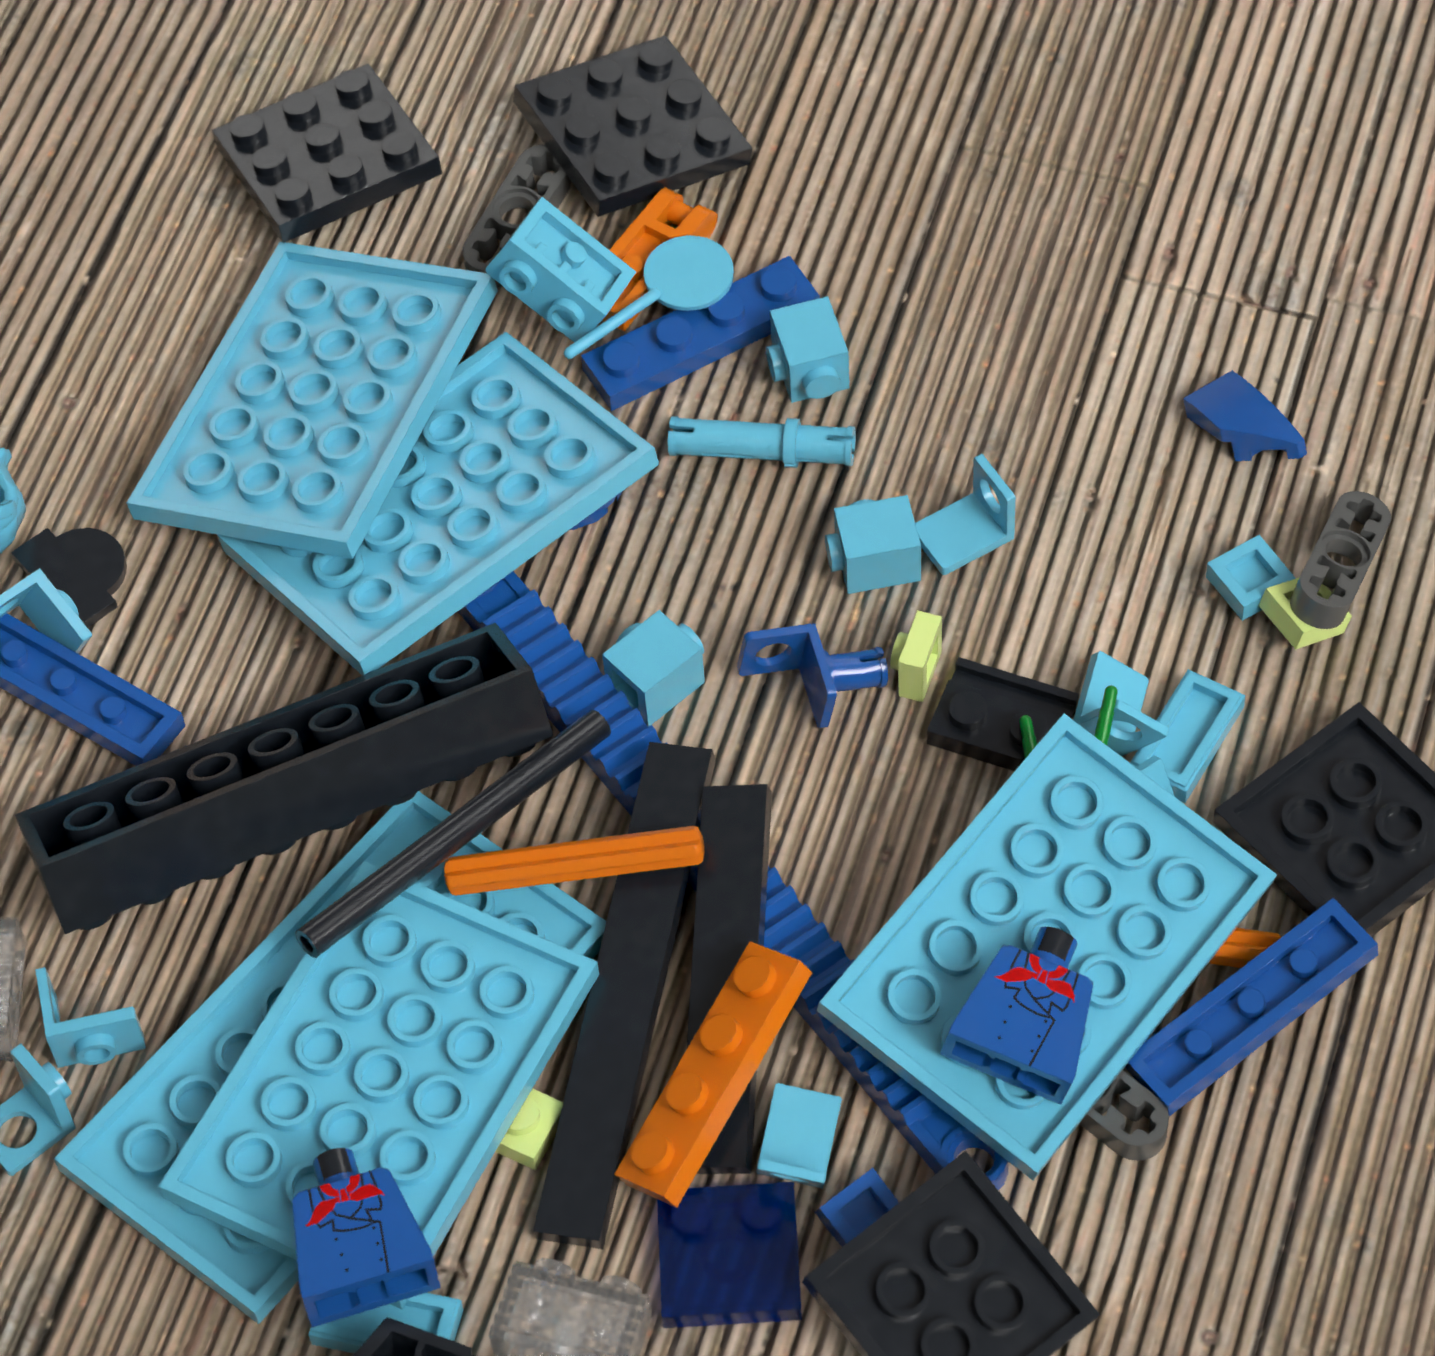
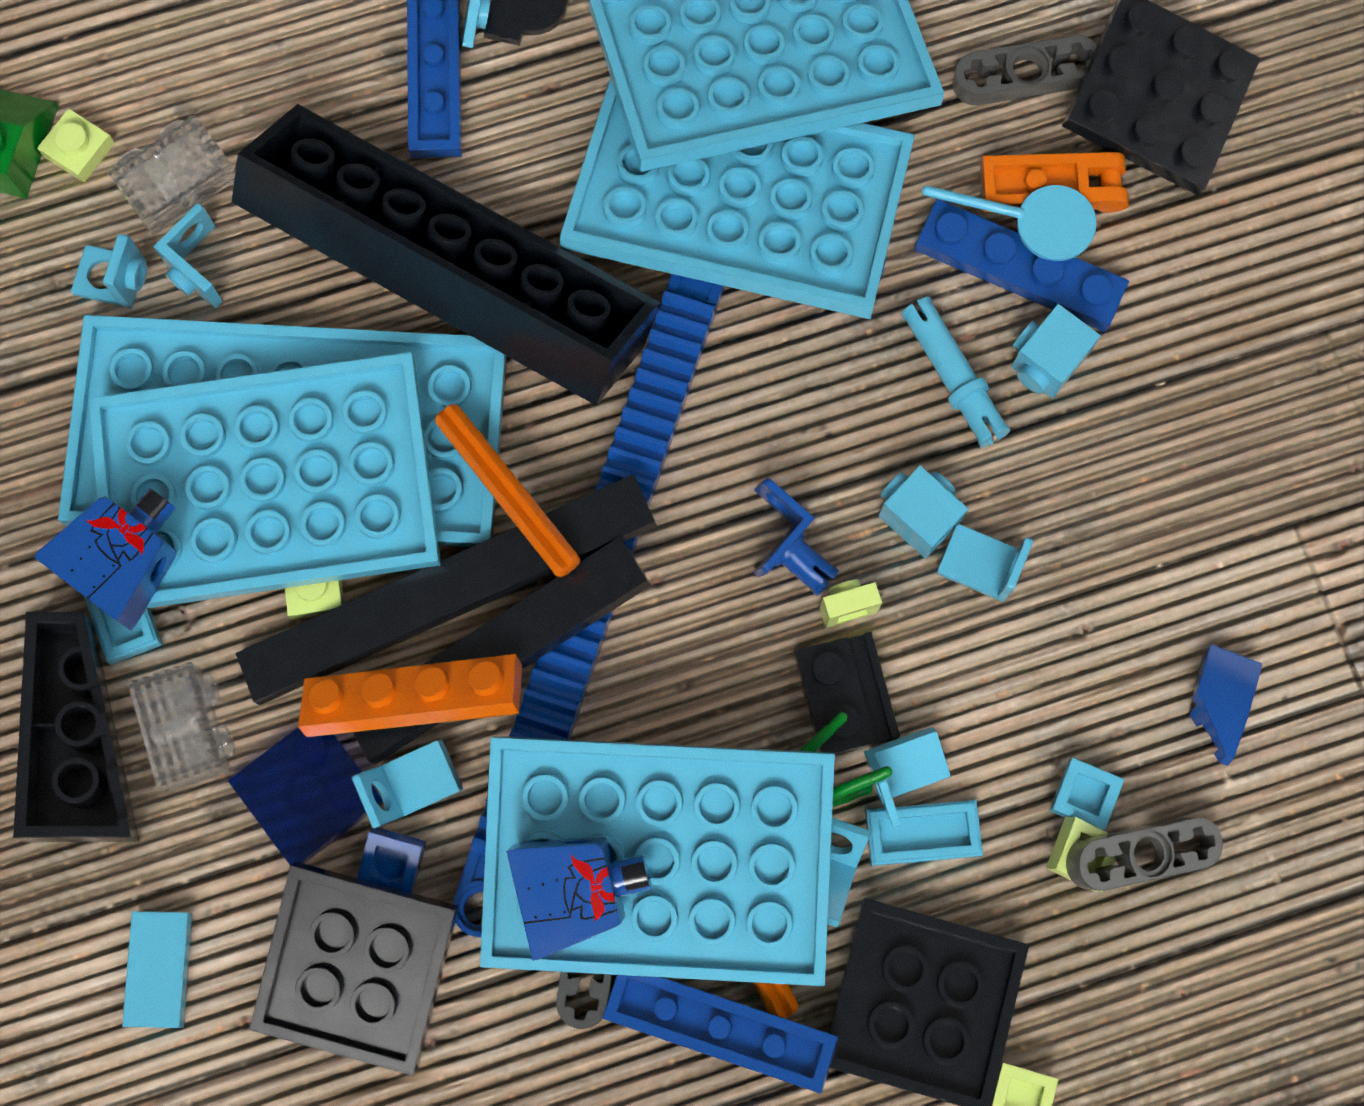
camera: 50 degrees right, 20 degrees up
(452, 834) = (469, 396): black piece -> none
(560, 271) = (981, 137): medium azure bracket -> none
(655, 665) = (715, 429): medium azure brick -> none

